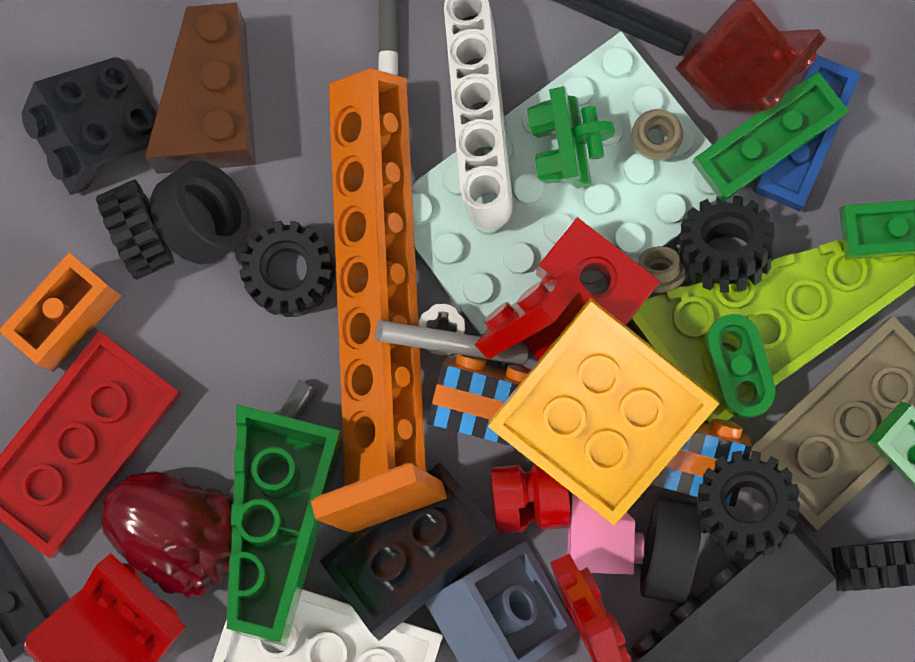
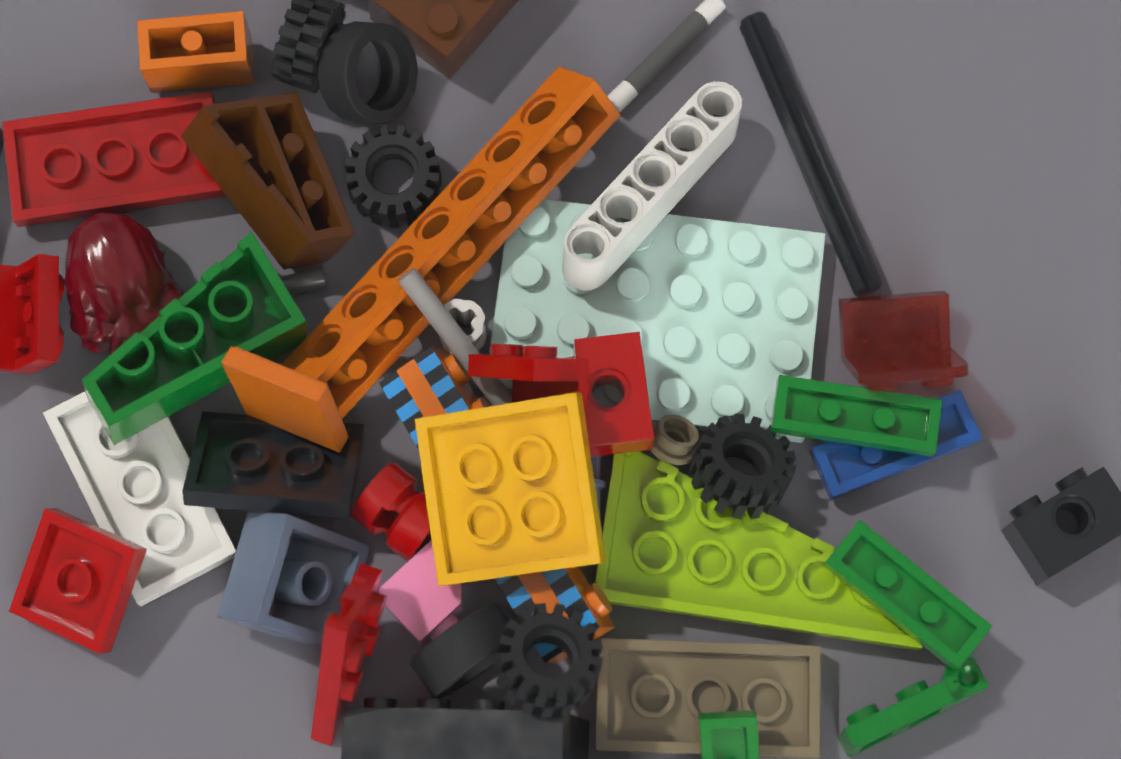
camera: 40 degrees right, 5 degrees down
(207, 348) = (273, 175): none -> reddish brown wedge
(563, 118) = (700, 276): green hips -> none
(661, 120) = (774, 318): dark tan plate -> none
(744, 366) = (655, 566): green plate -> none

